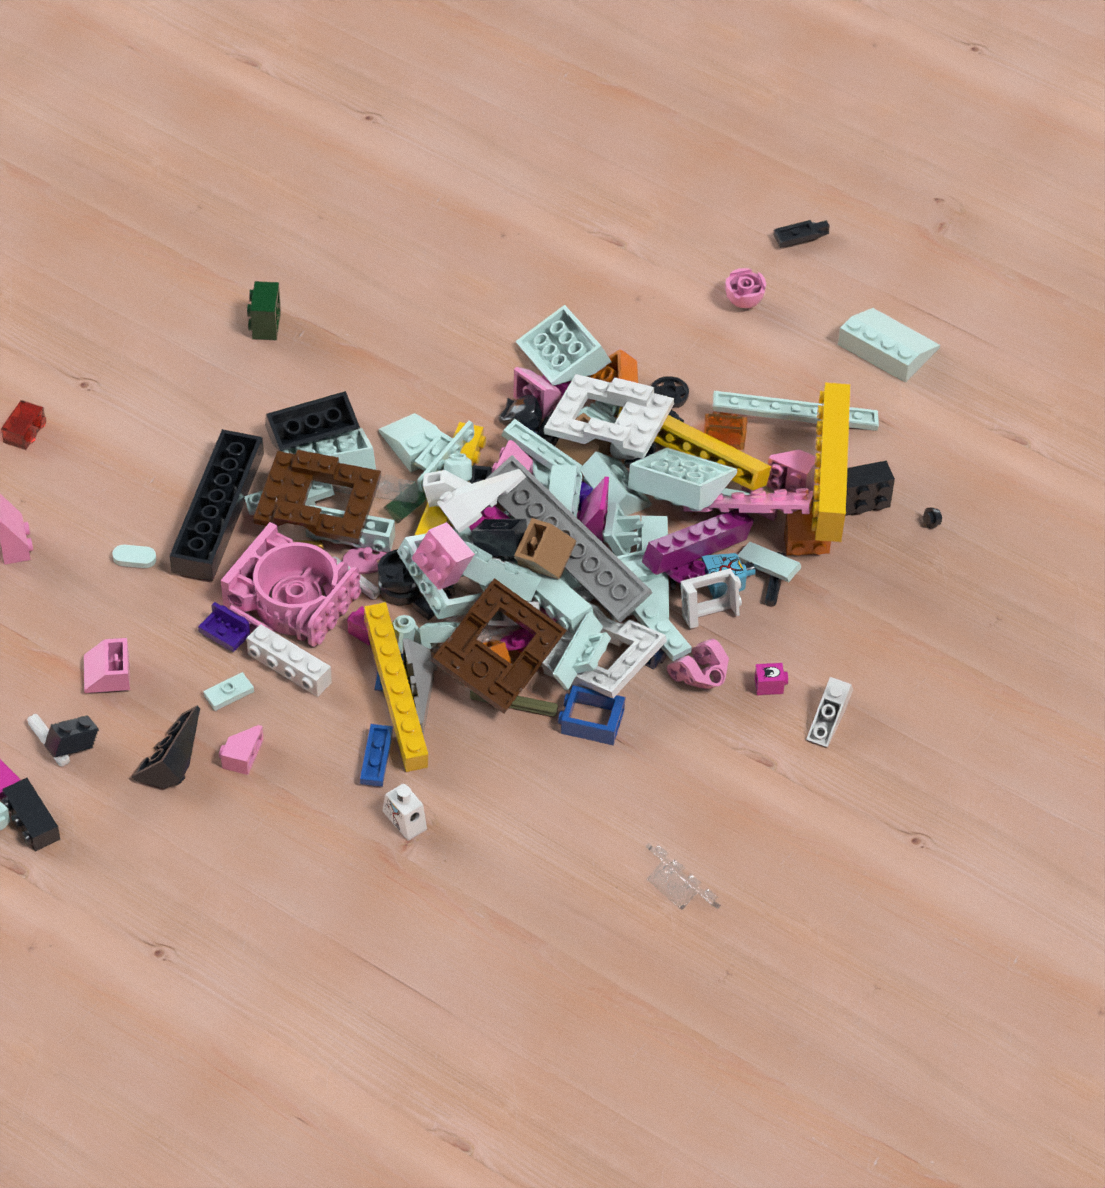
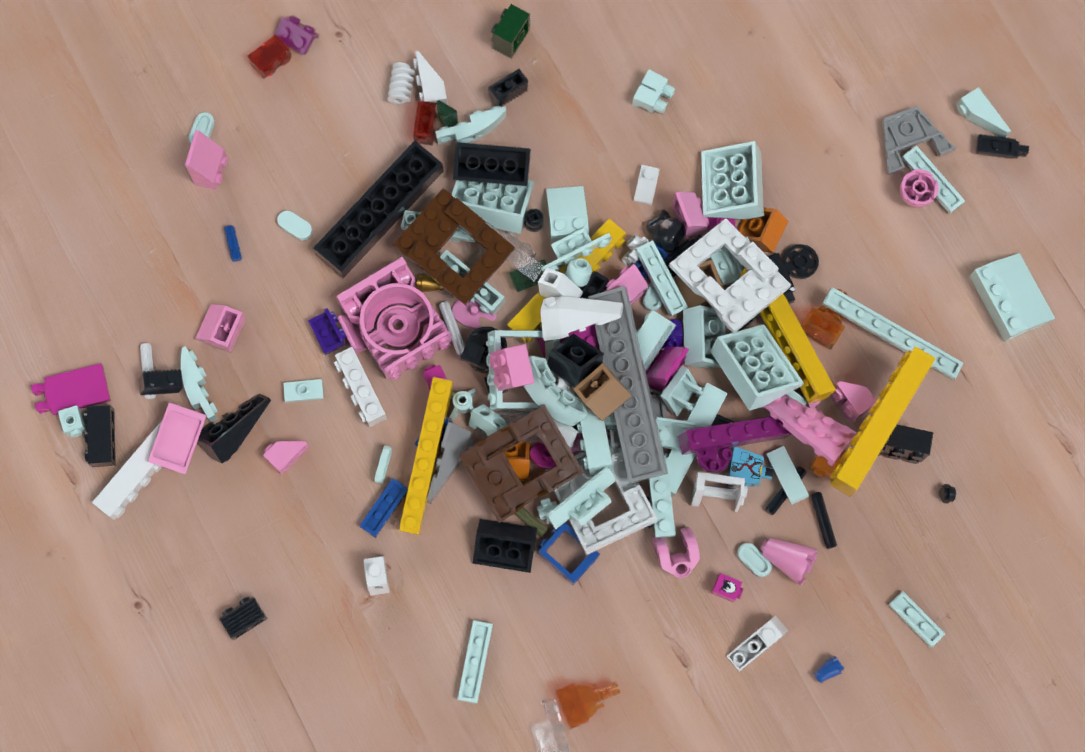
camera: 25 degrees right, 25 degrees up
(44, 396) = (296, 34): none -> magenta bracket
(76, 595) = (233, 243): none -> blue axle
(92, 823) = (128, 480): none -> white brick
(110, 734) = (192, 380): none -> light aqua slope
(119, 774) = (177, 438): none -> bright pink piece
(176, 395) = (400, 83): none -> white piece
(207, 385) = (432, 85): none -> white slope
(221, 413) = (425, 122): none -> clear red brick
(241, 400) = (446, 114): none -> clear green slope
(276, 398) = (479, 125): none -> light aqua slope
(284, 910) = (243, 617): none -> black brick
(290, 358) = (508, 88): none -> black brick
(353, 717) = (383, 464): none -> light aqua tile
(383, 456) = (533, 224): none -> black wheel
(435, 311) = (650, 92): none -> light aqua hips
(478, 388) = (646, 184): none -> white slope
(499, 441) = (633, 243): none -> white plate
(523, 735) = (504, 545): none -> black slope
(548, 687) = (546, 507): none -> light aqua gear
(554, 847) = (475, 662): none -> light aqua plate
(686, 833) = (579, 703): none -> clear orange brick
(705, 251) = (908, 130): none -> light grey wing
(766, 213) = (981, 112): none -> light aqua slope
(775, 287) = (947, 195): none -> light aqua plate
(781, 648) = (753, 560): none -> light aqua tile
(815, 626) = (790, 558): none -> bright pink cone
(828, 588) = (823, 519): none -> black axle
(915, 703) = (829, 669): none -> blue cone
(970, 632) = (916, 619): none -> light aqua tile

